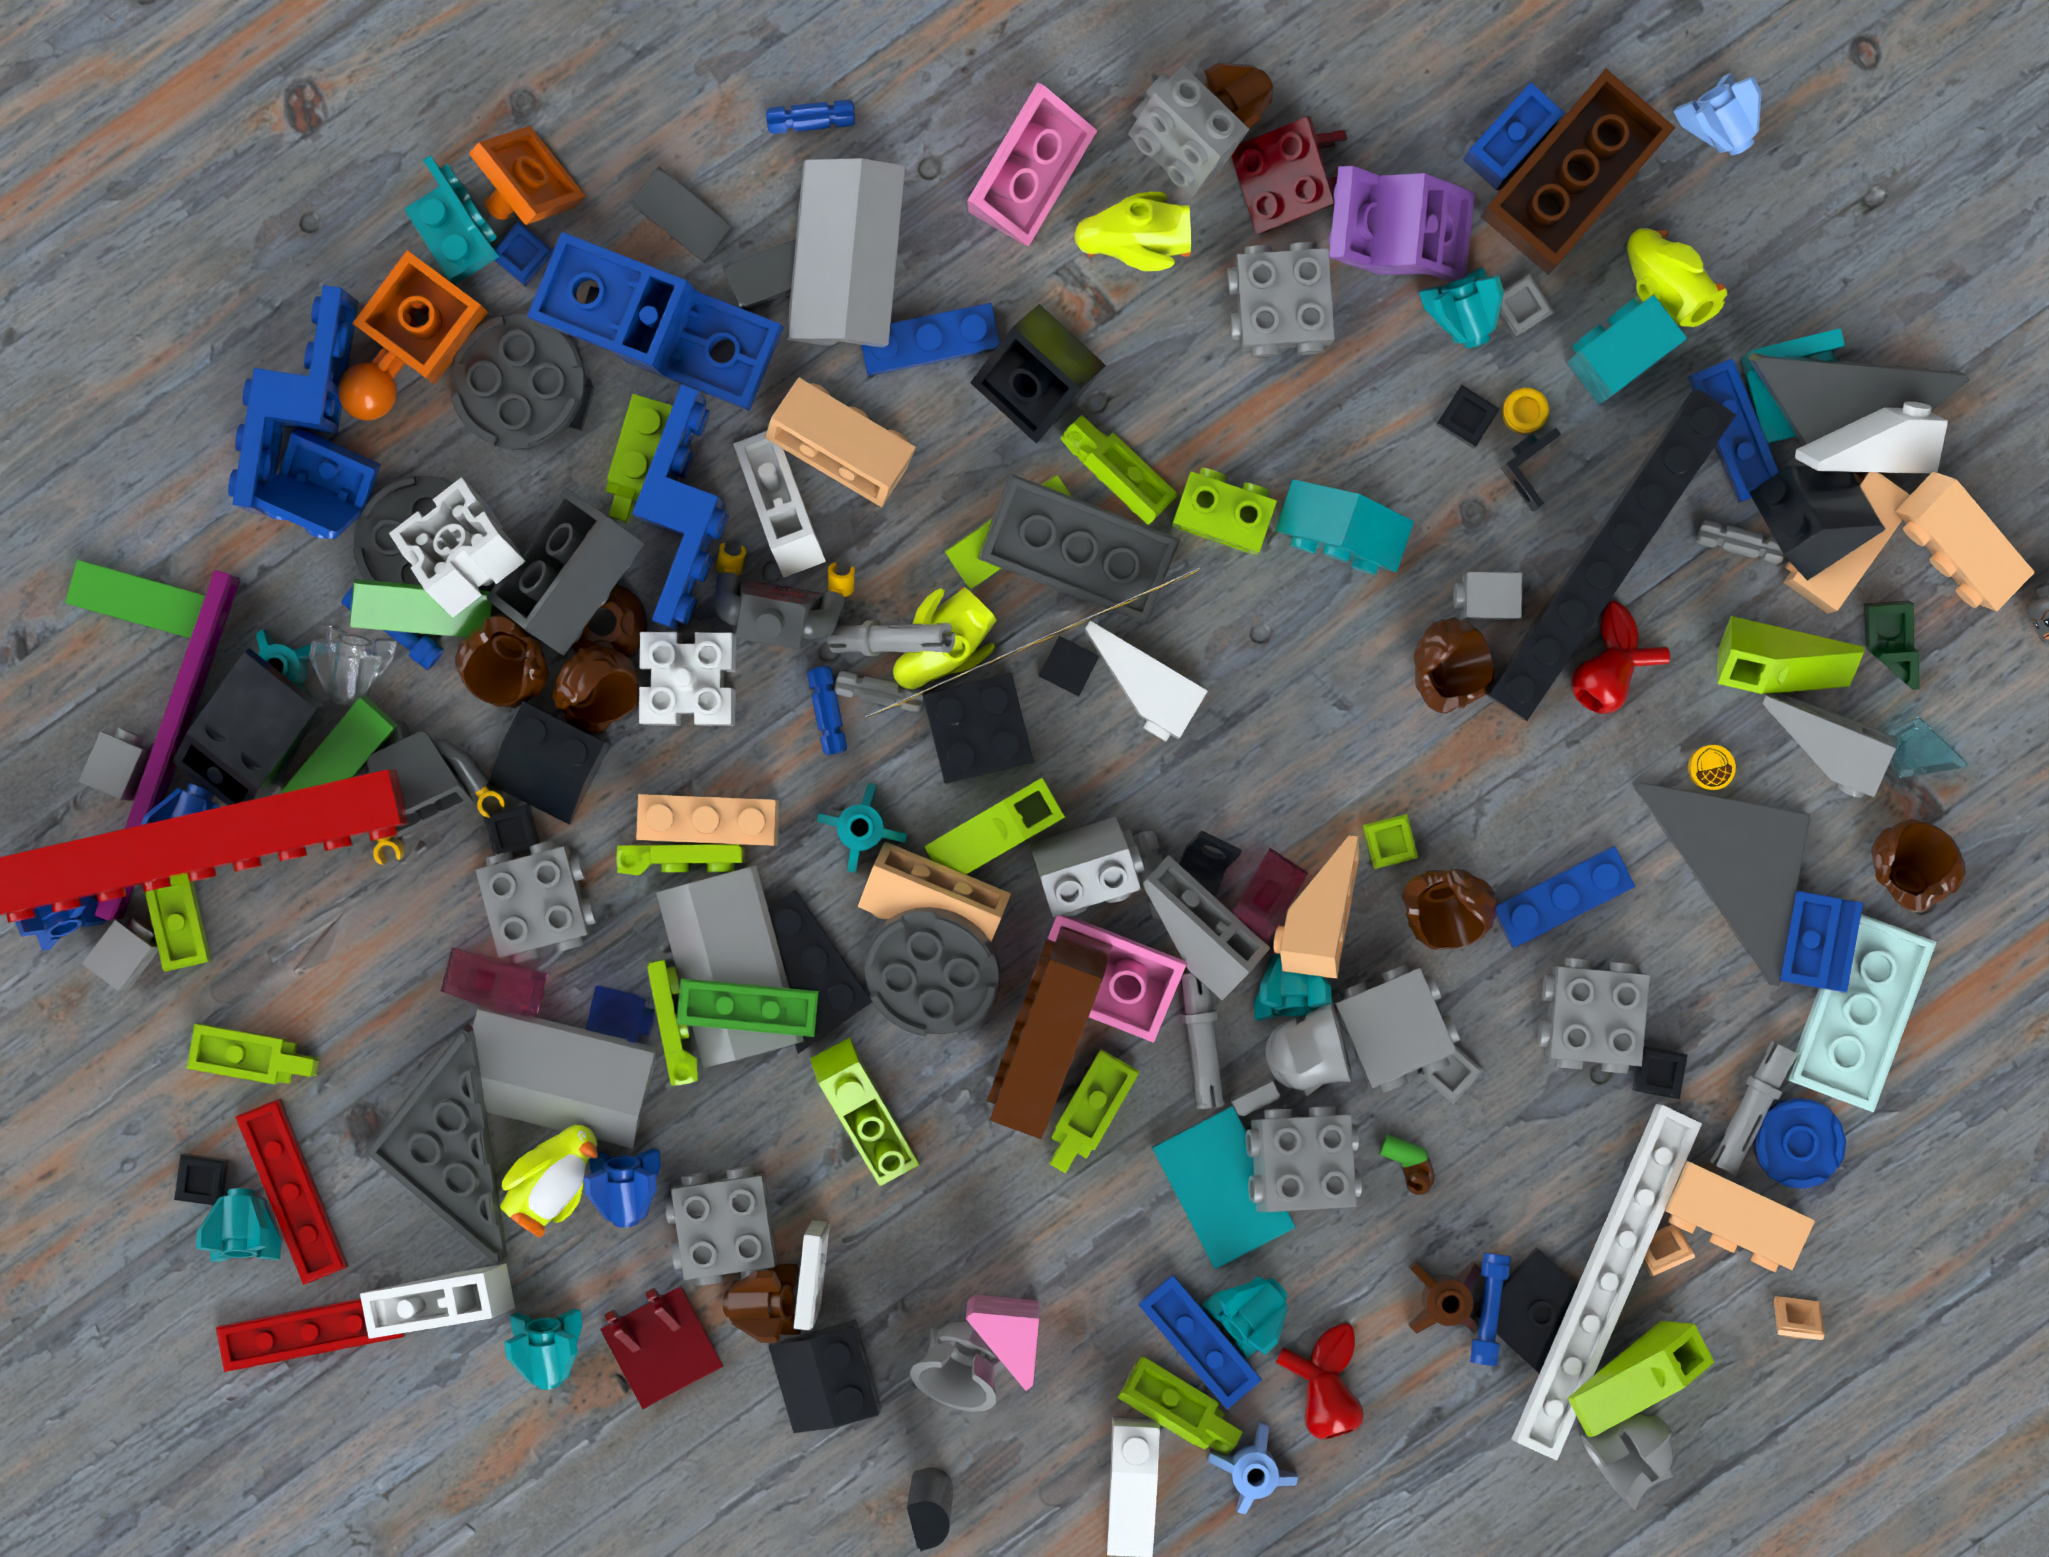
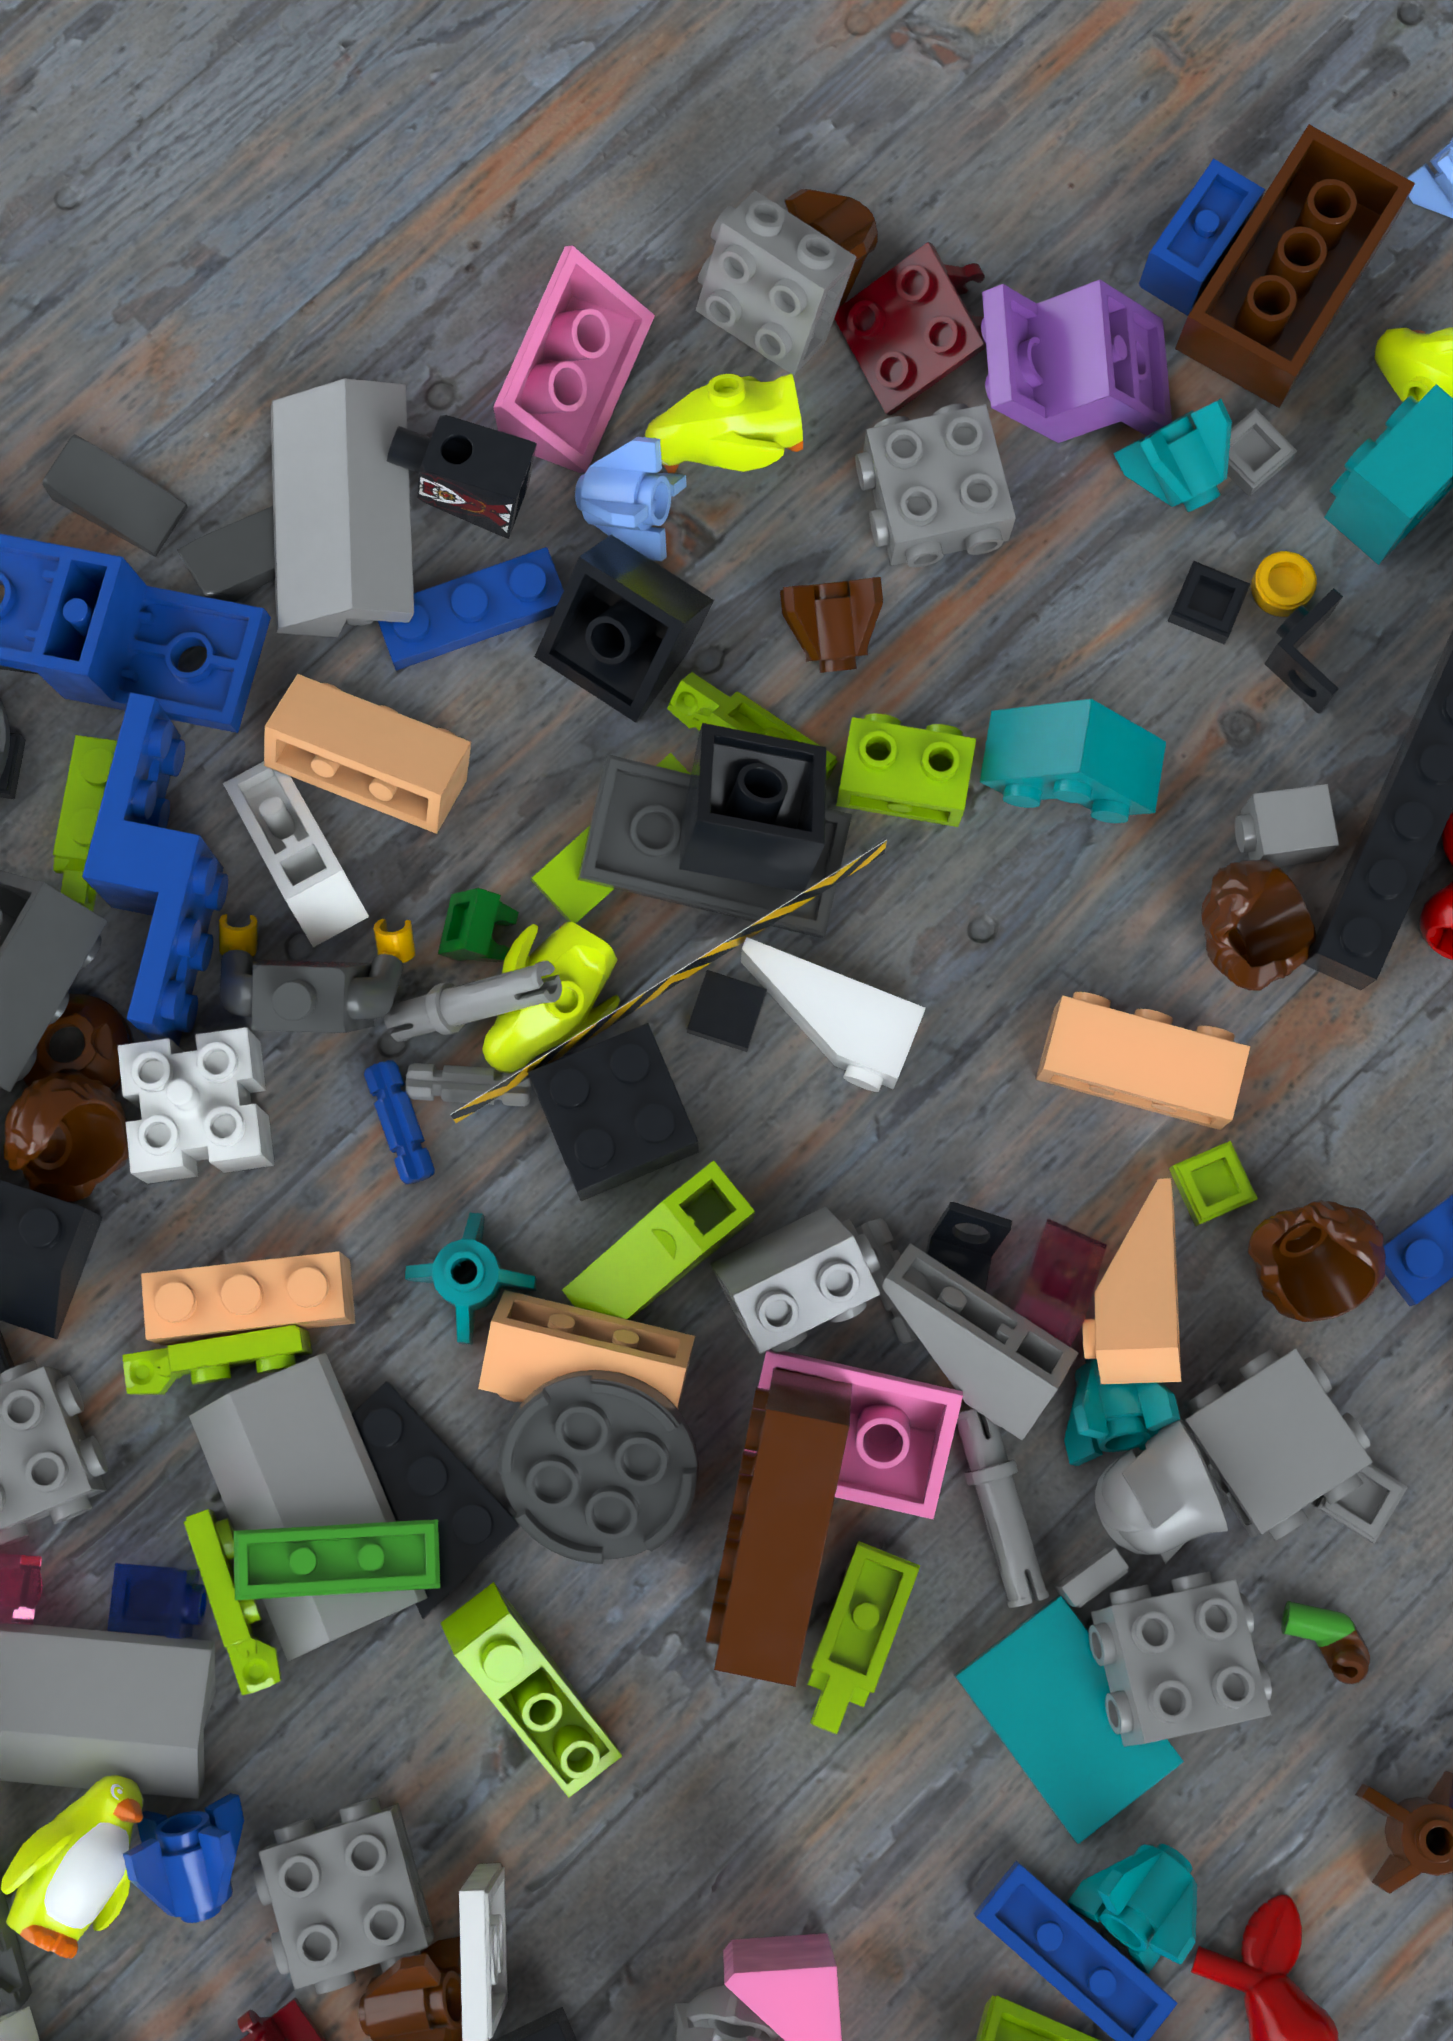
camera: 10 degrees left, 10 degrees down
(810, 116) = (273, 350): blue axle -> none
(897, 578) = (471, 924): none -> green tile
(960, 248) = (468, 471): none -> black torso
(1057, 276) = (628, 496): none -> light blue brick
(1110, 531) = (754, 808): none -> black slope
(1190, 392) = (833, 620): none -> reddish brown brick
(1356, 748) = (1143, 1060): none -> light nougat brick

